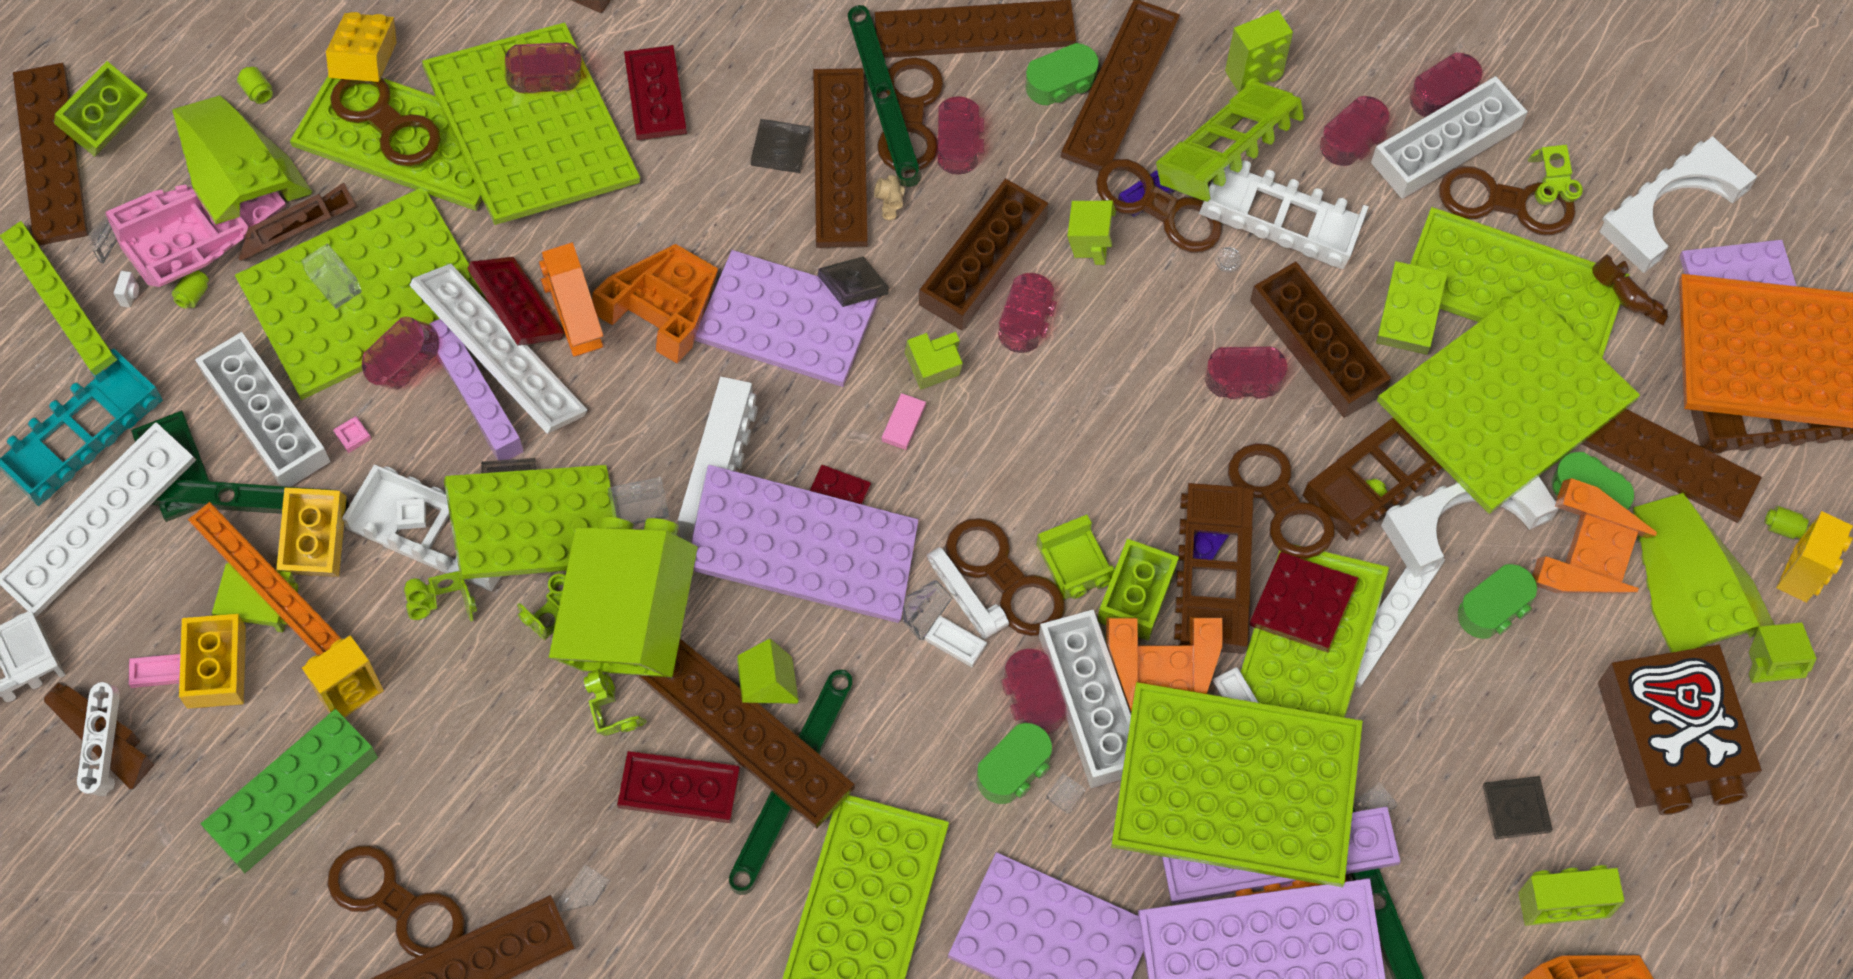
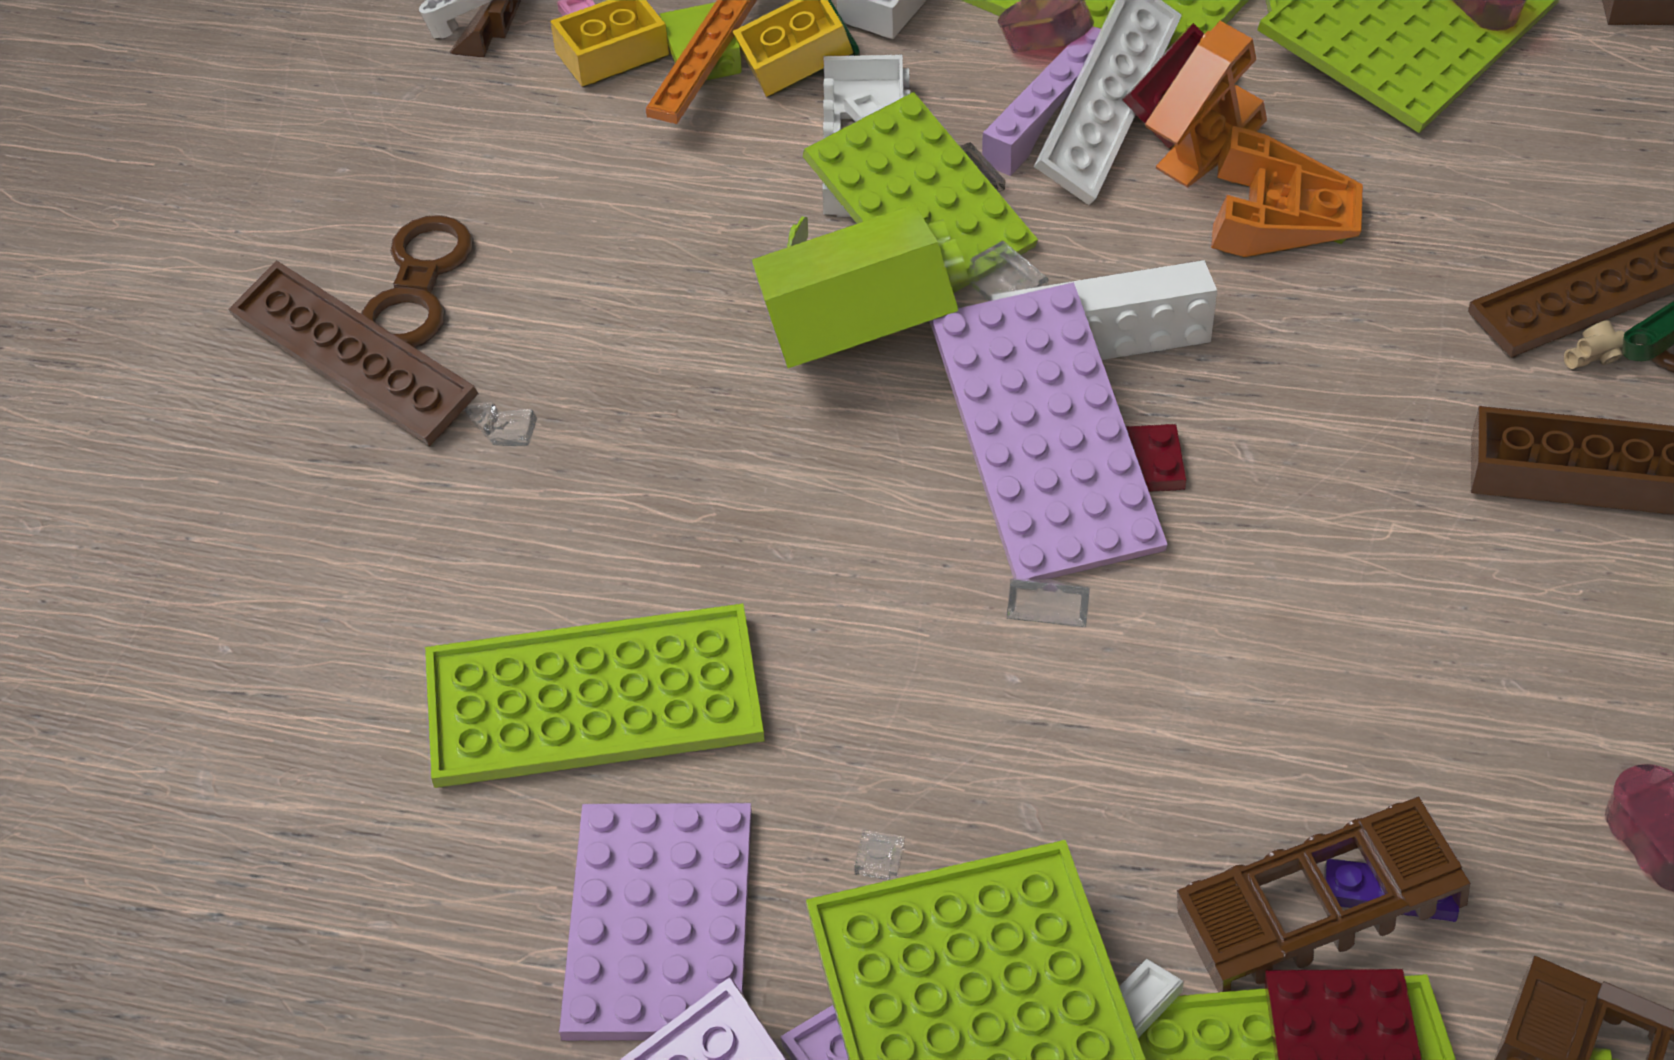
camera: 70 degrees right, 15 degrees down
(289, 790) = (499, 148): bright green brick -> none
(342, 677) = (634, 120): yellow brick -> none
(352, 434) = (936, 42): bright pink tile -> none
(422, 597) = (778, 158): lime piece -> none
(604, 691) = (745, 338): lime piece -> none
(655, 92) = (1544, 97): dark red plate -> none
(678, 787) = (672, 456): dark red plate -> none
(752, 736) = (773, 480): reddish brown plate -> none
(767, 675) = (858, 475): lime slope -> none
(775, 811) = (767, 558): dark green beam -> none
(780, 146) = (1575, 228): clear smoke tile -> none
(784, 319) = (1351, 324): lavender plate -> none
(853, 281) = (1445, 353): clear smoke tile -> none
(903, 421) = (1296, 483): bright pink tile -> none
(934, 359) = (1398, 466): lime plate -> none
(955, 641) = (1026, 652): white tile -> none
(985, 621) = (1073, 664): white beam -> none
(1003, 574) = (1151, 671): reddish brown bar -> none
(1014, 764) = (886, 774): bright green brick -> none
(1027, 313) = (1548, 542): clear pink brick -> none
(1033, 690) = (1001, 758): clear pink brick -> none
(1074, 558) = (1230, 733): lime panel -> none
(1091, 694) = (1052, 796): white brick -> none
(1139, 586) = (1224, 813): lime brick -> none
(1164, 665) = (1124, 890): orange wedge -> none
(1282, 501) = (1490, 949): reddish brown bar -> none

